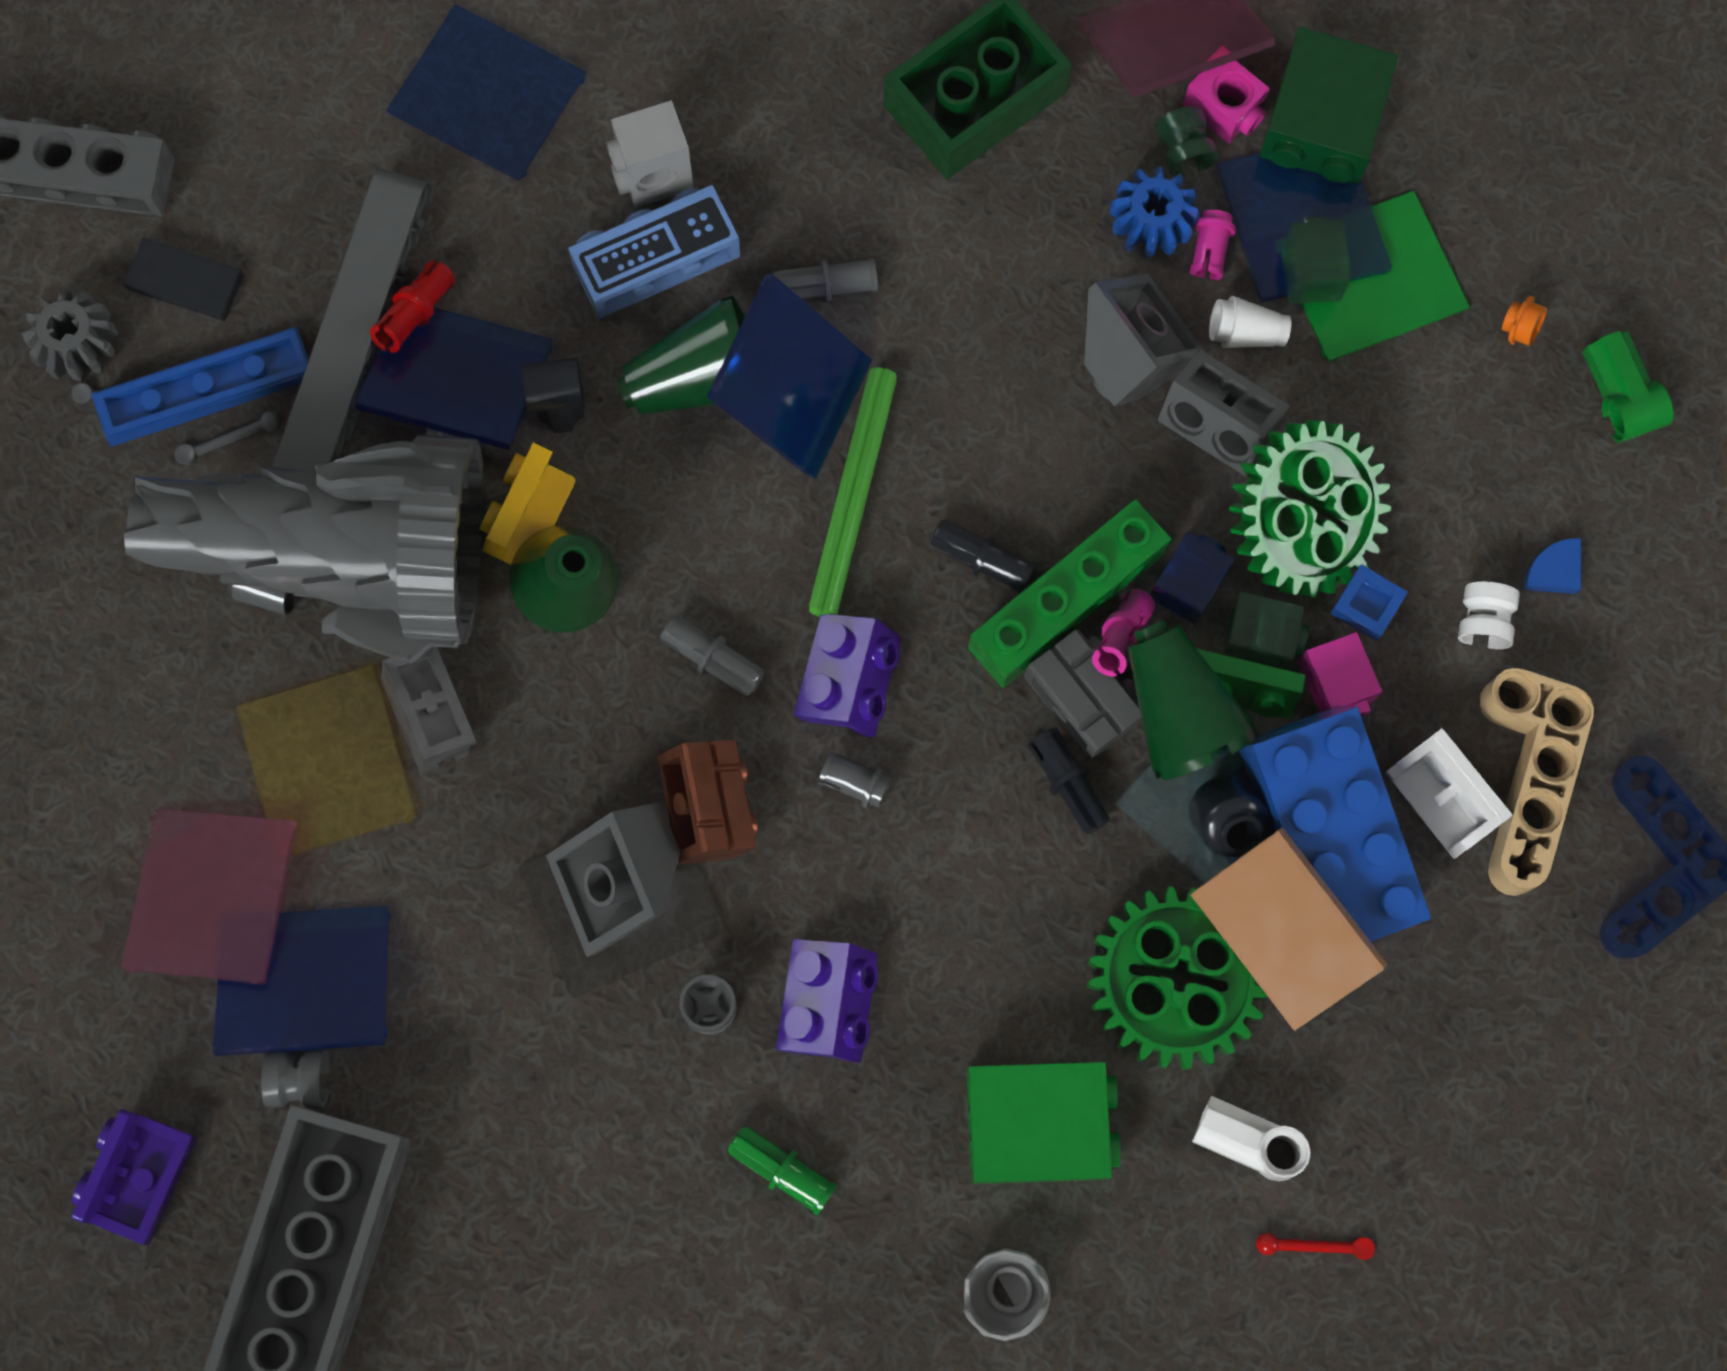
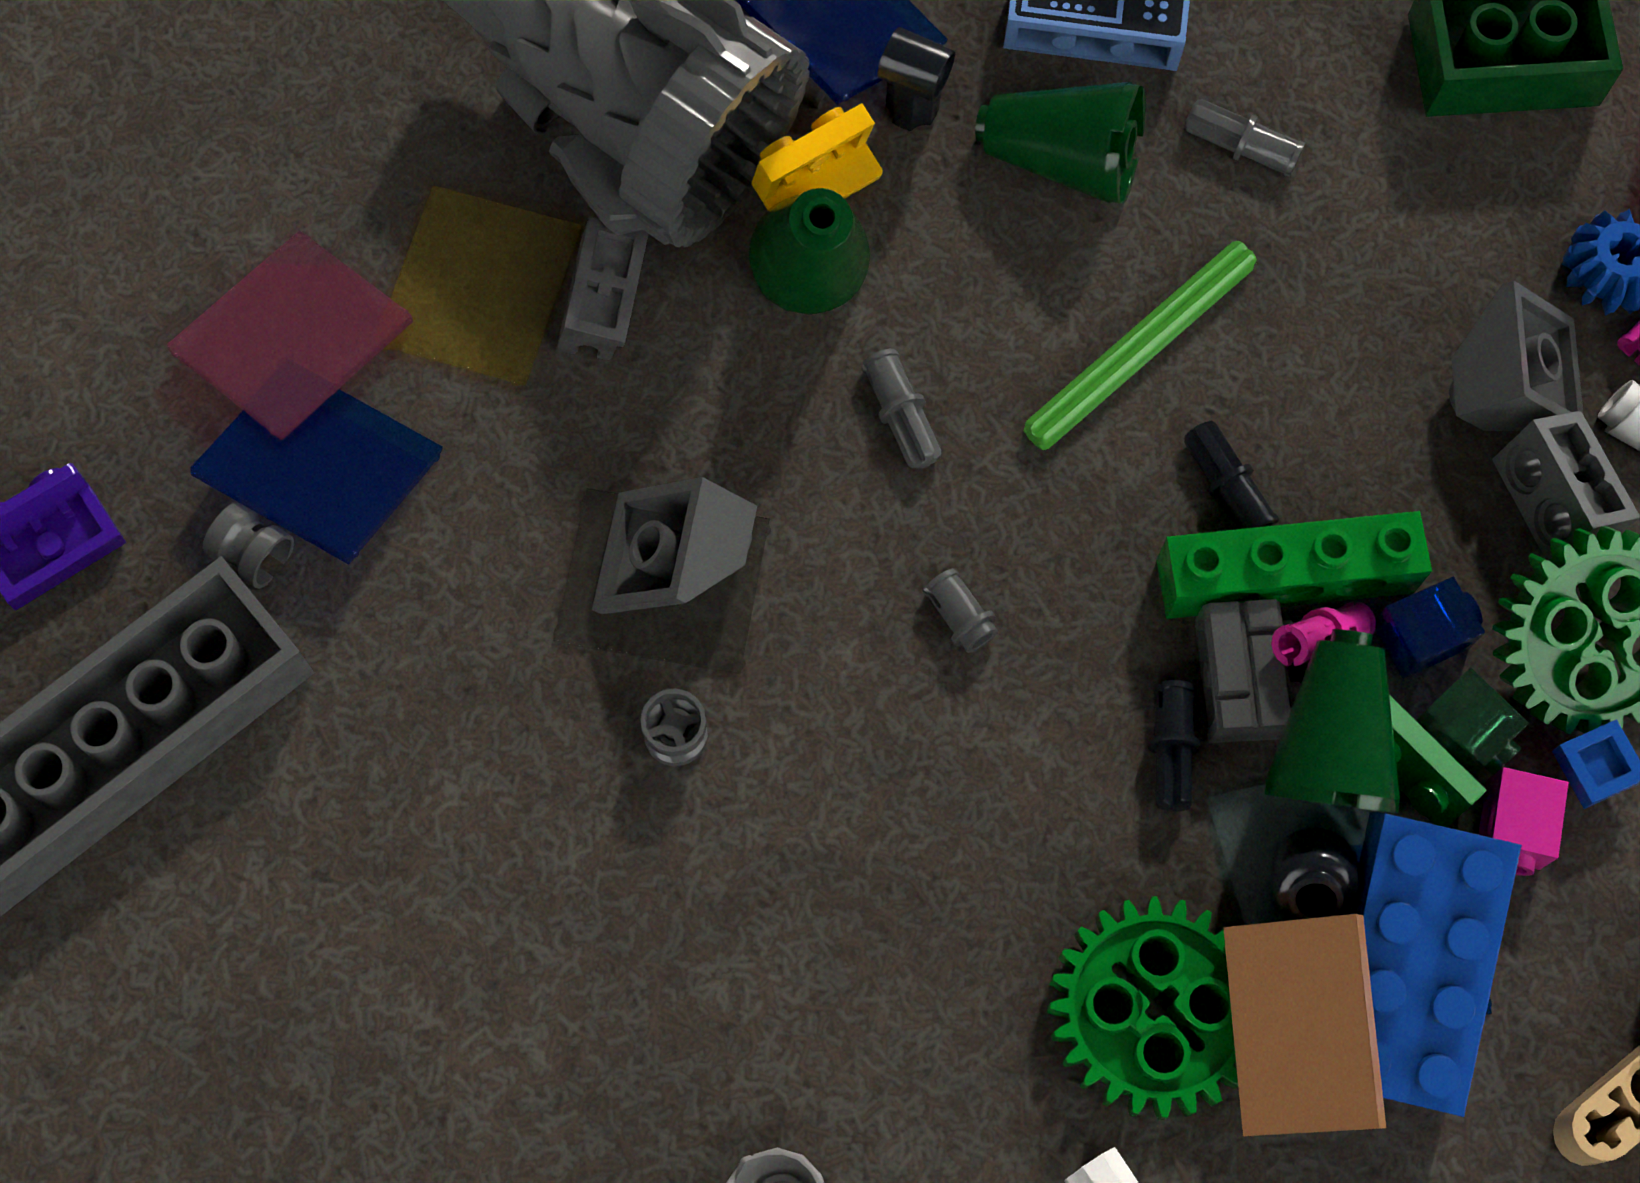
camera: 35 degrees right, 5 degrees down
(708, 801) = (804, 537): copper brick -> none
(781, 1169) = (638, 932): green axle -> none
(789, 376) = (1149, 193): clear blue piece -> none
(827, 1000) = (793, 800): dark purple bracket -> none
(848, 673) = (1023, 507): dark purple bracket -> none
(1041, 1123) = (922, 1057): green brick -> none
(1448, 793) = (1564, 1008): white hinge -> none

